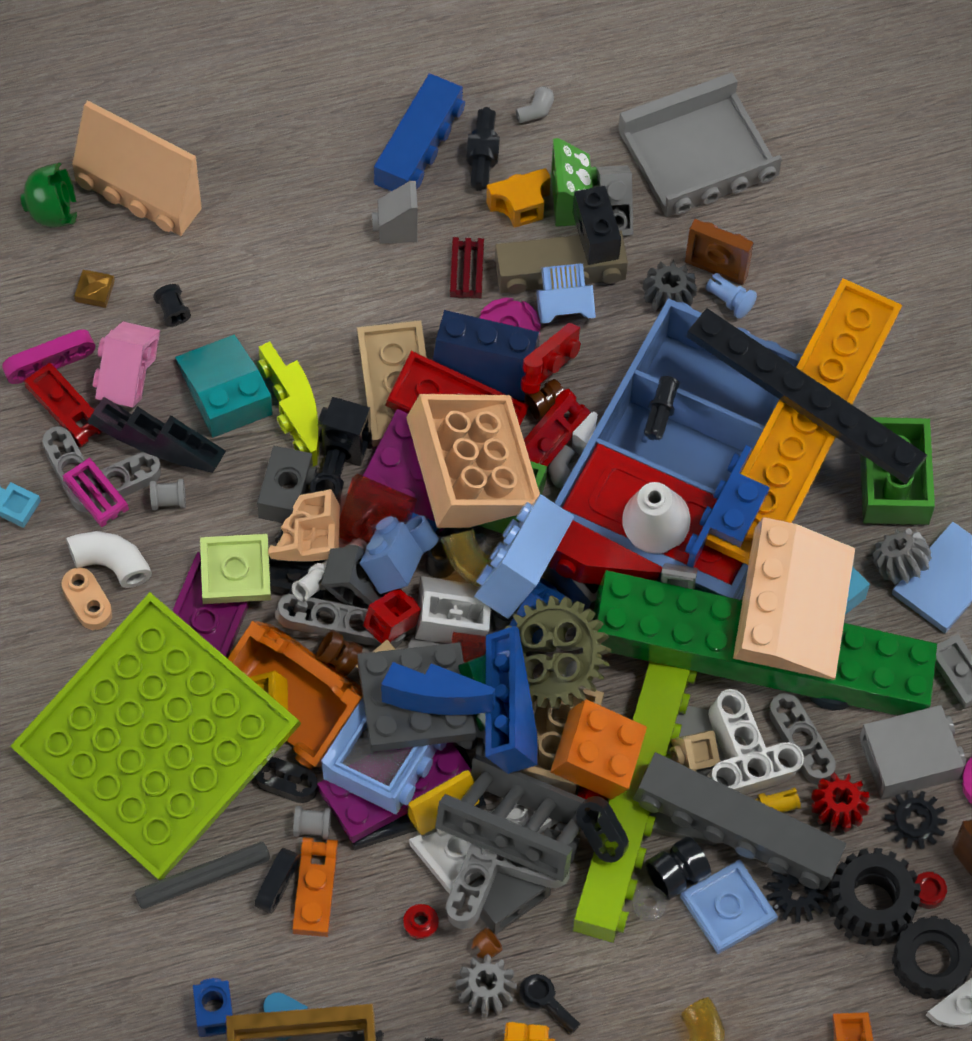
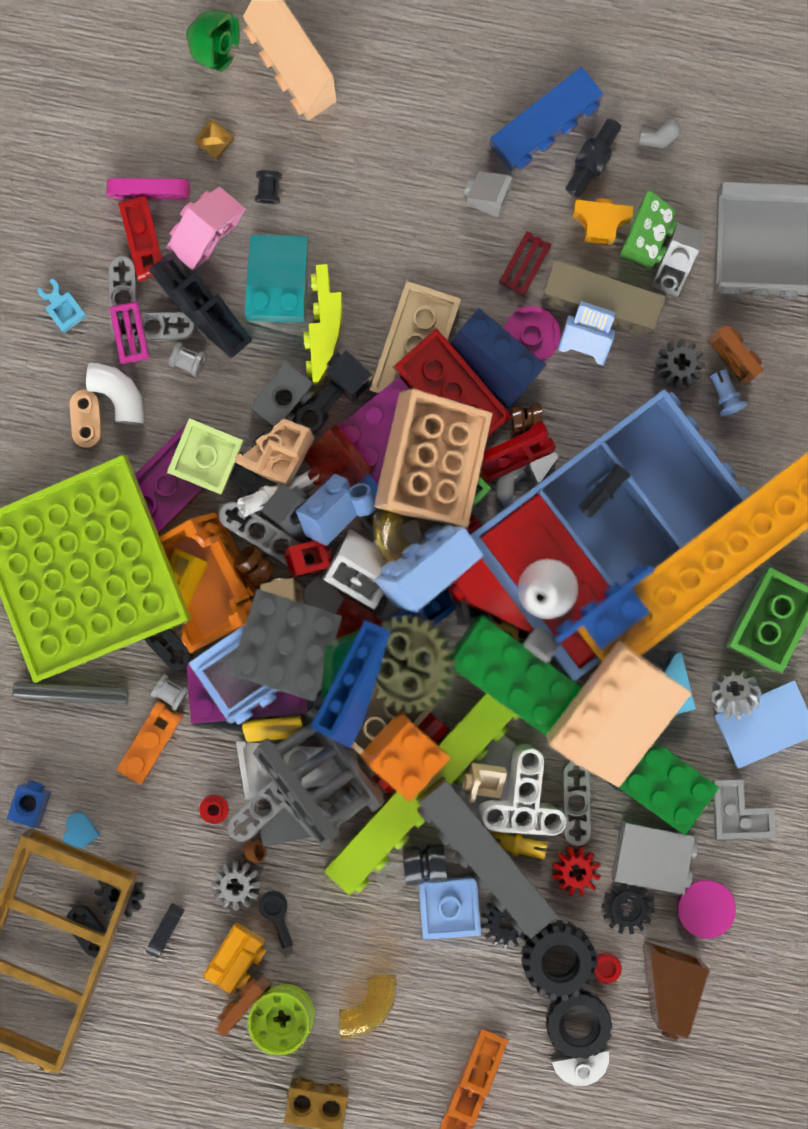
camera: 30 degrees right, 25 degrees up
(277, 880) = (122, 726): black beam -> none
(436, 691) = (294, 660): blue slope -> none
(550, 357) = (545, 388): red plate -> none
(596, 225) = (643, 287): black brick -> none
(602, 829) = (376, 820): black beam -> none
(806, 396) = (725, 542): black plate -> none

